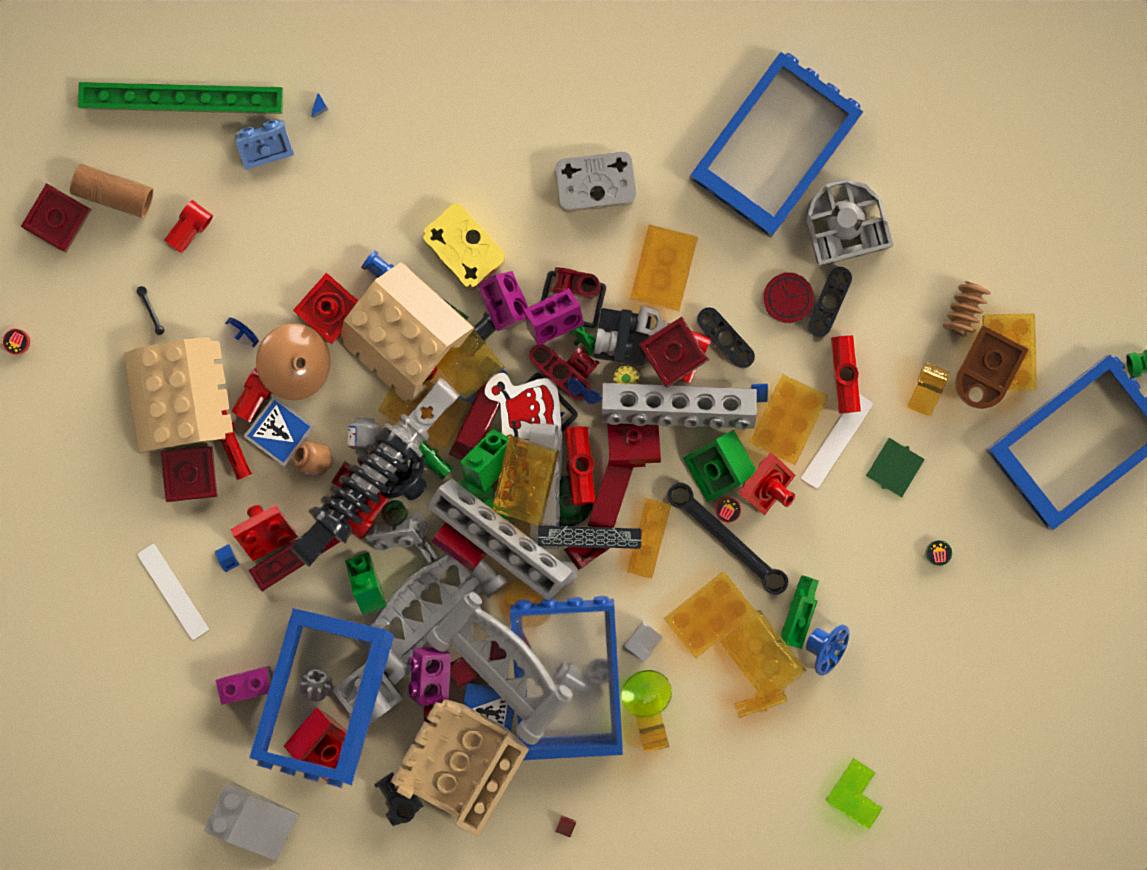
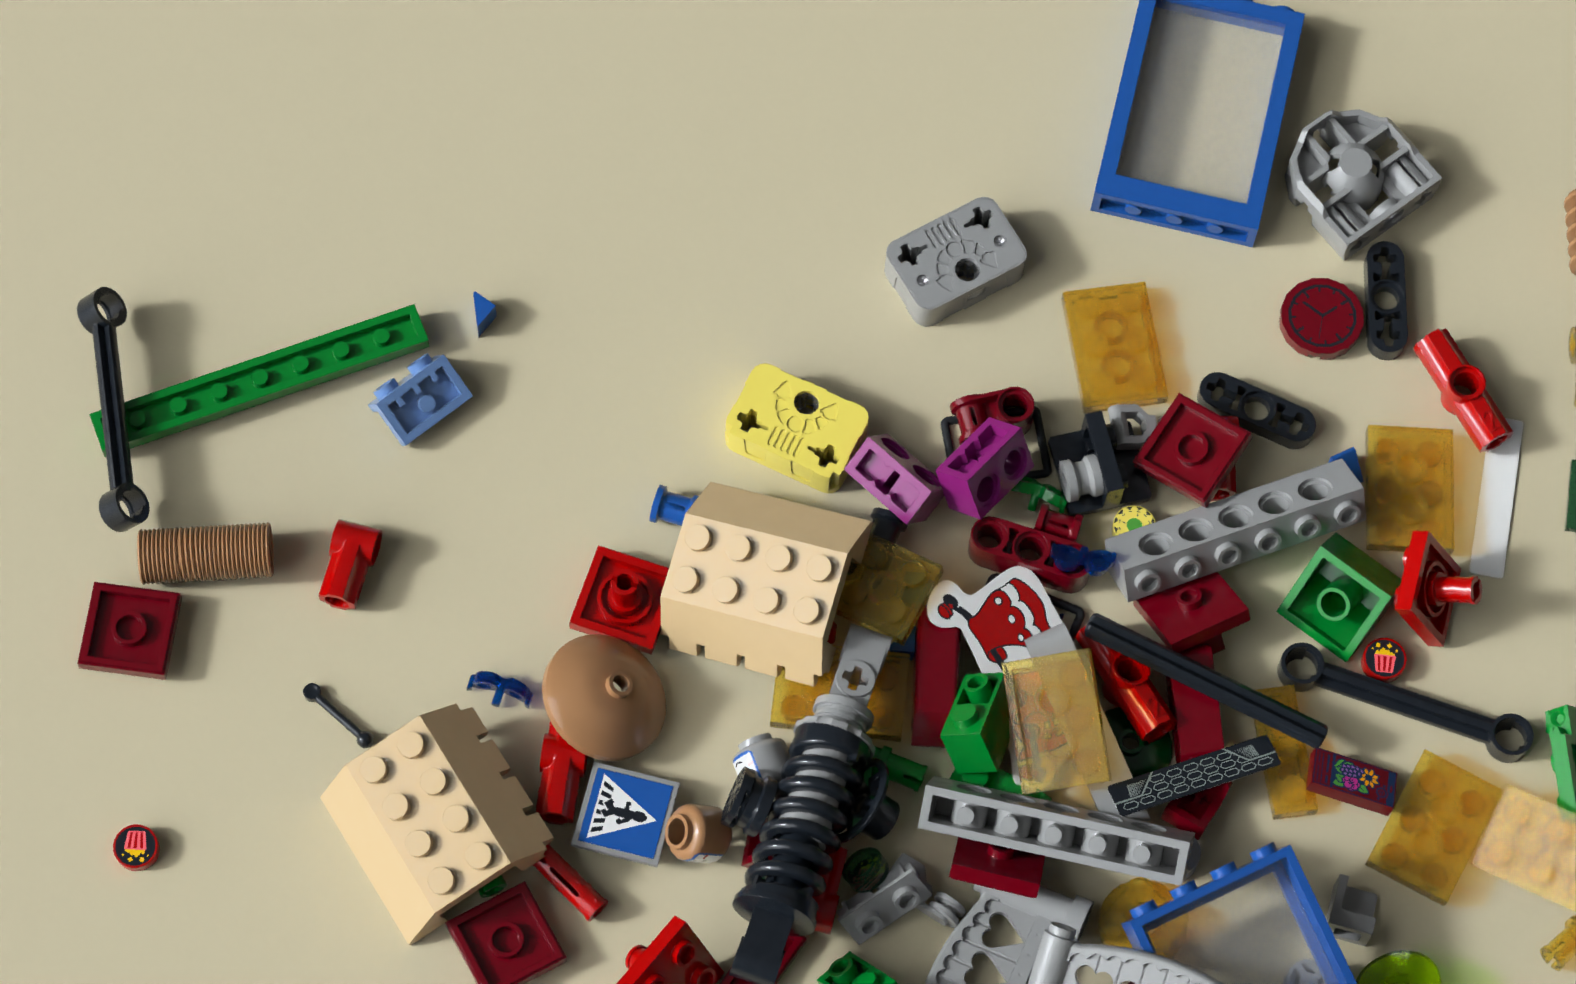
camera: 30 degrees left, 20 degrees down
(91, 85) = (113, 410): none -> black piece
(342, 457) = (749, 801): none -> black wheel
(619, 487) = (1206, 680): none -> black axle
(676, 571) = (1351, 781): none -> tile

